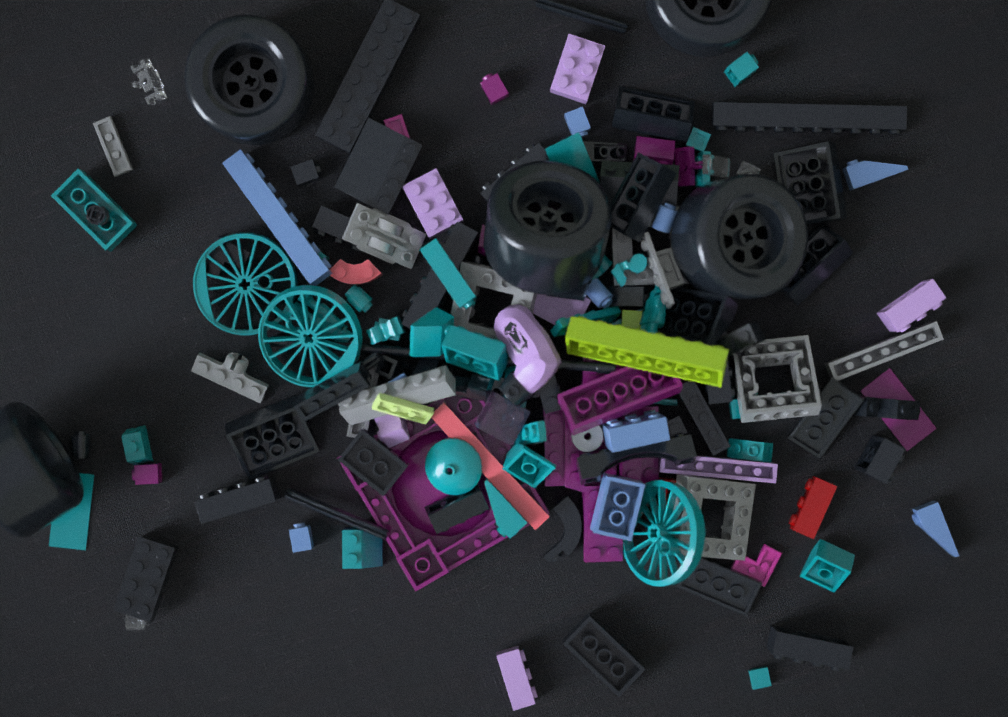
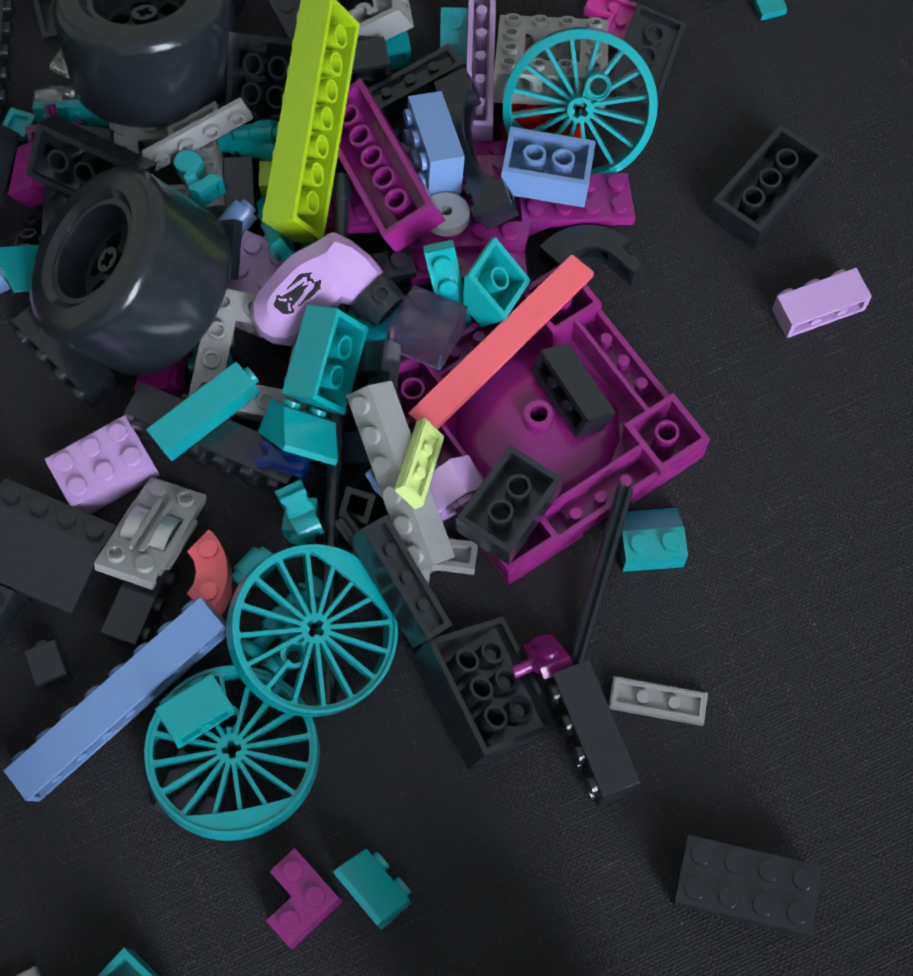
camera: 90 degrees left, 20 degrees down
(134, 623) = (828, 905): clear tile -> none
(137, 445) = (516, 919): teal torso -> none
(147, 473) = (565, 899): magenta brick -> none
(157, 327) = (309, 901): none -> magenta brick
(159, 364) = (373, 887): none -> teal slope
(231, 375) = (386, 767): light grey plate -> none
(260, 540) = (658, 700): none -> light grey tile
(264, 264) = (194, 710): none -> teal brick
(286, 474) = (543, 657): none -> magenta plate
(301, 537) = (646, 631): medium blue brick -> none
(407, 330) = (283, 460): none -> clear blue bar
(458, 456) = (491, 403): teal dish -> none
(506, 516) = (570, 315): teal slope -> none
(665, 217) = (123, 134): medium blue brick -> none

